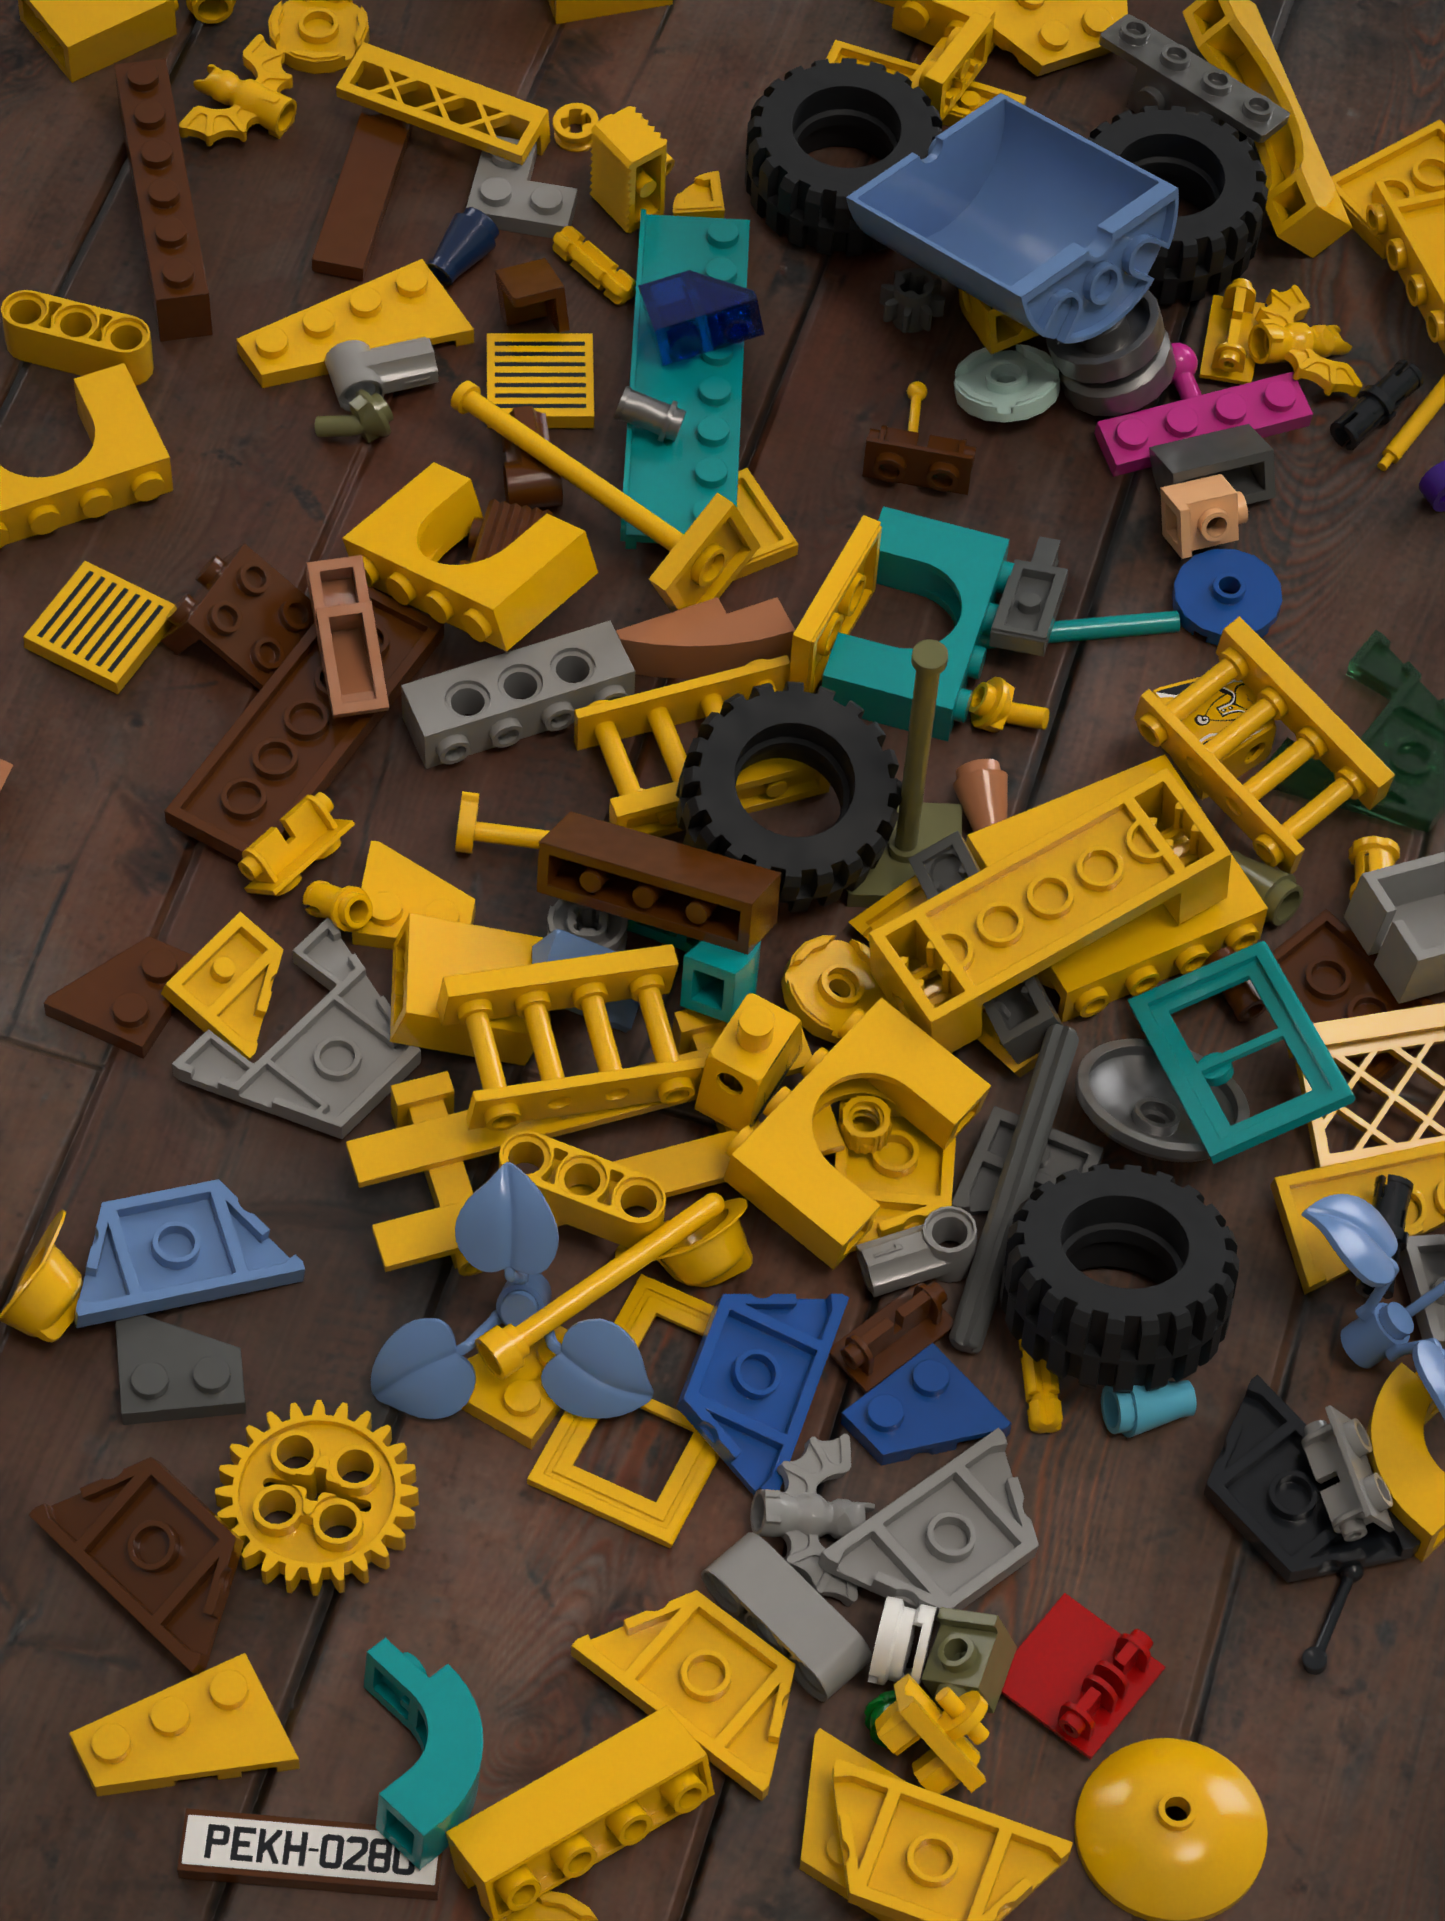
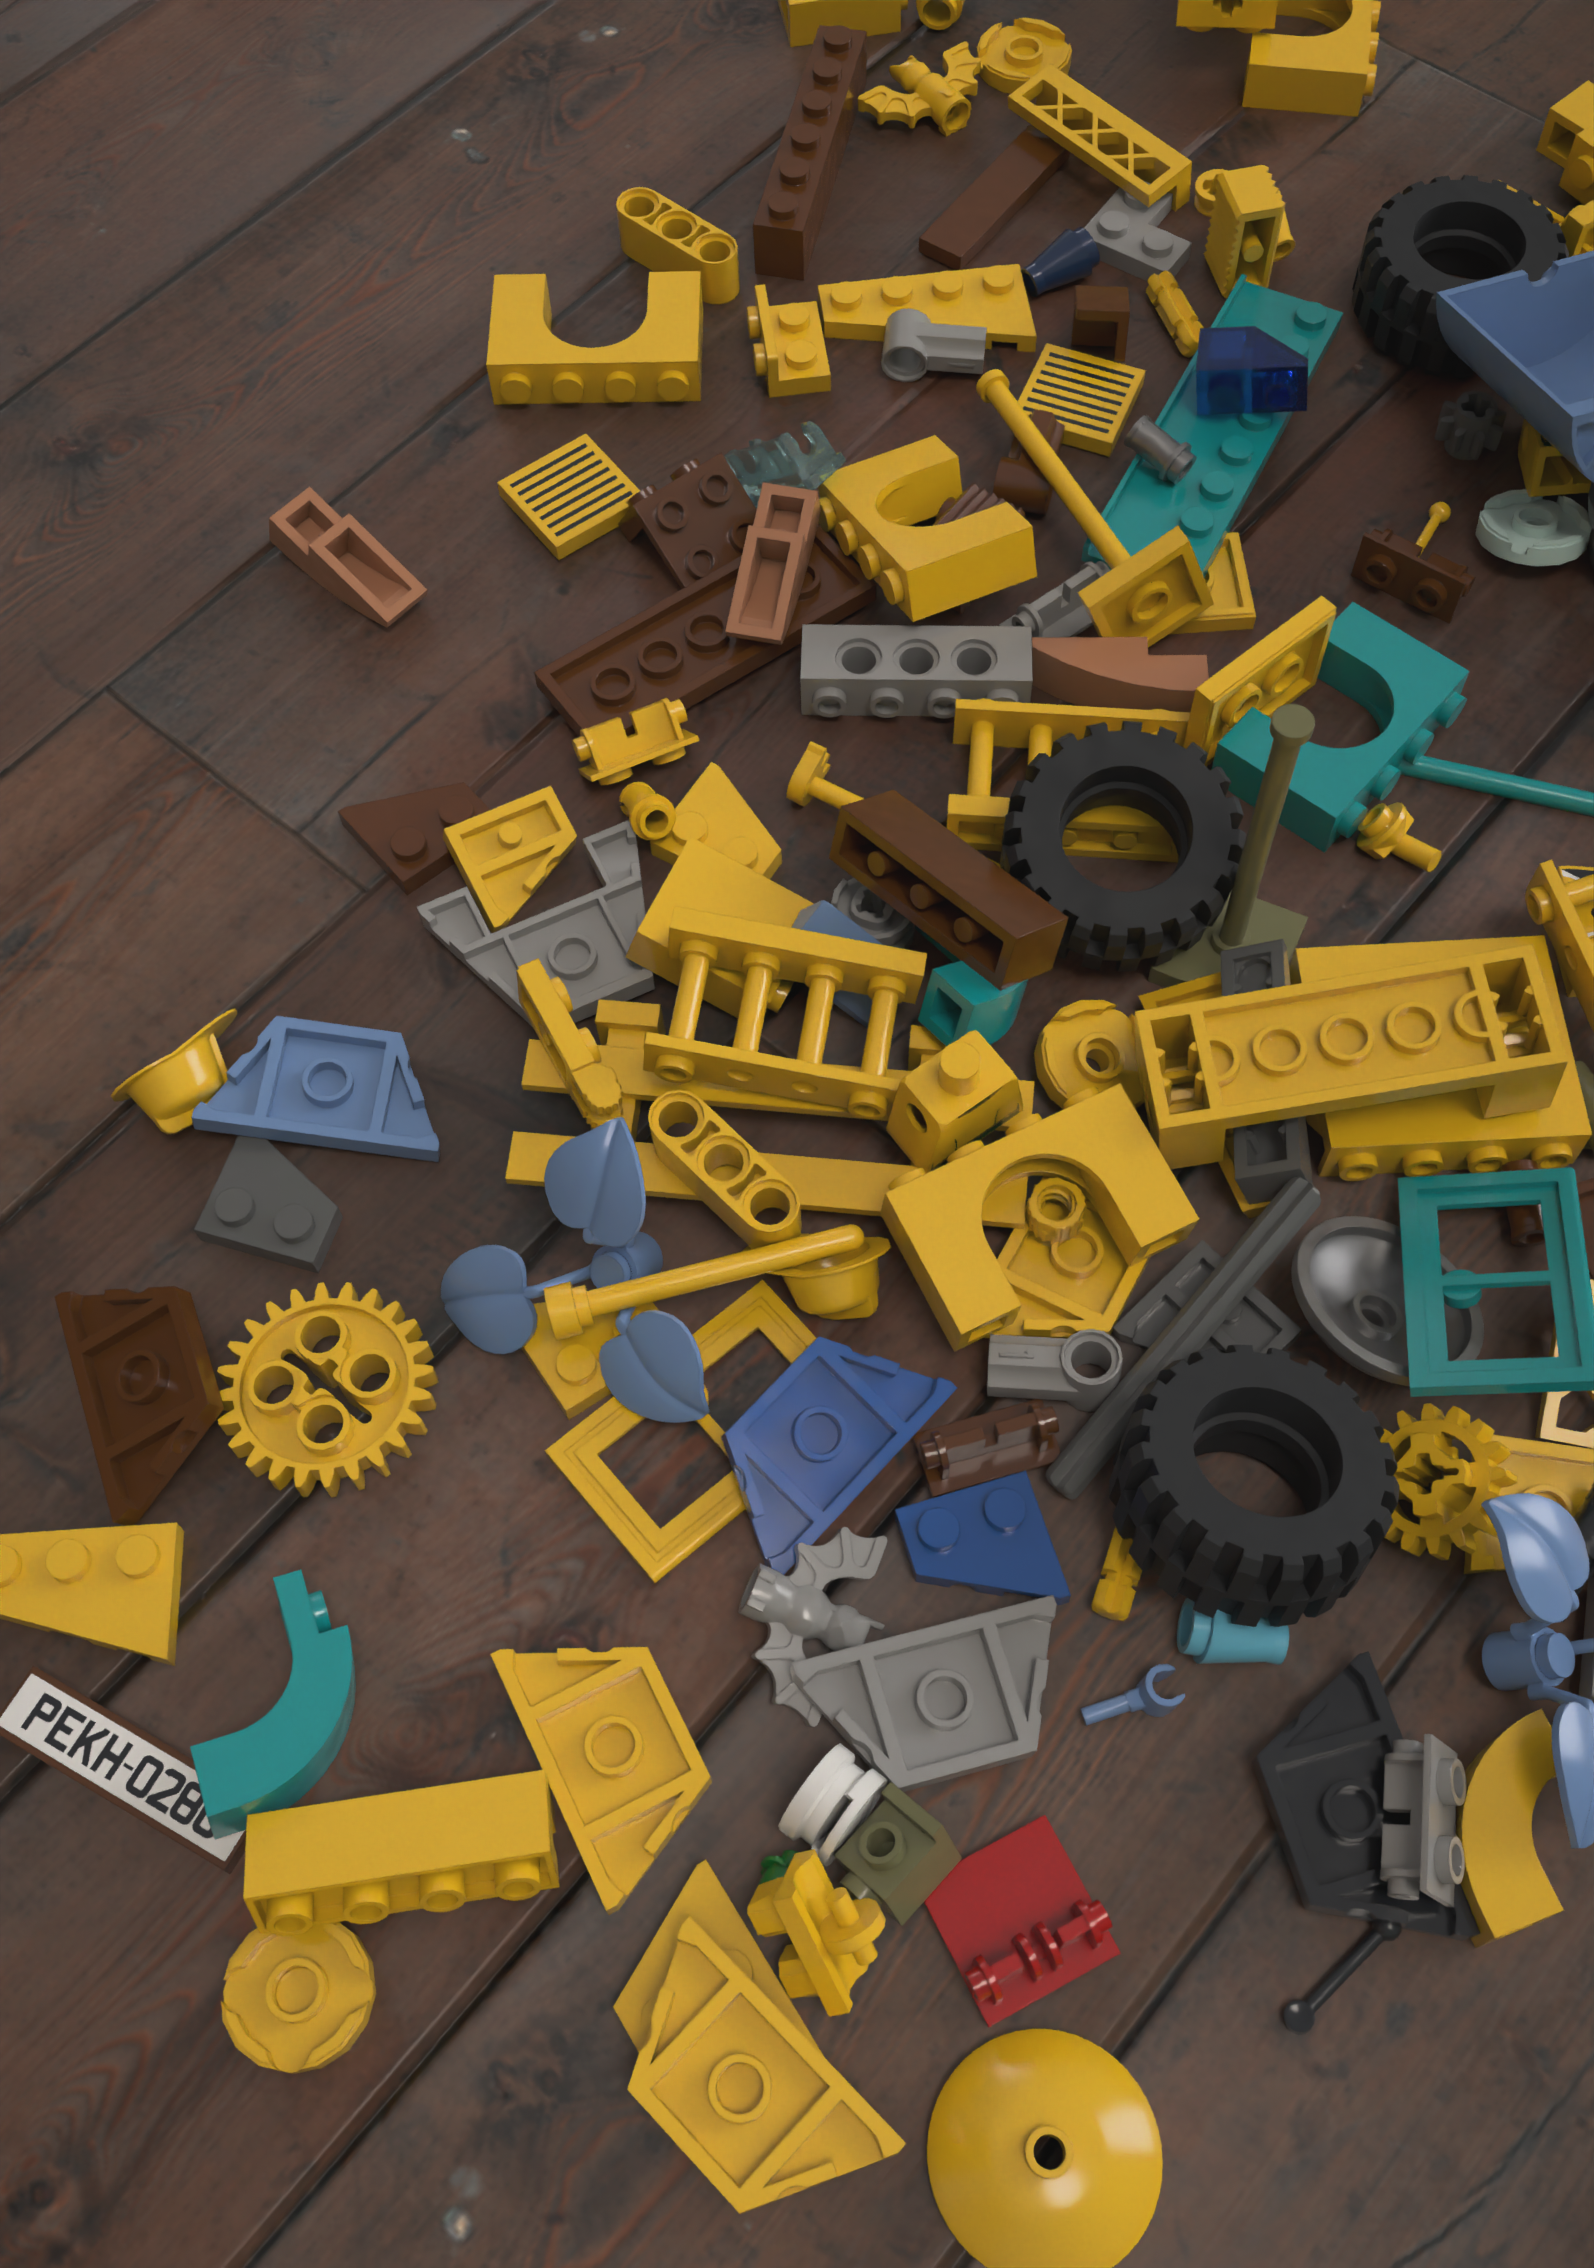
camera: 30 degrees right, 5 degrees up
(237, 409) = (789, 347): none -> yellow bracket
(310, 538) = (783, 463): none -> clear light blue hinge
(368, 418) = (899, 384): olive plate -> none
(394, 1133) = (570, 1050): none -> yellow hinge
(624, 589) = (1061, 609): none -> light grey hinge
(701, 198) = (1307, 283): yellow tile -> none
(788, 1614) = (730, 1717): light grey beam -> none
(982, 792) = (1335, 911): nougat cone -> none
(1030, 601) = (1466, 740): dark grey hinge -> none
(1101, 1479) = (1139, 1698): none -> medium blue hand
(1281, 1232) = (1454, 1505): none -> yellow gear

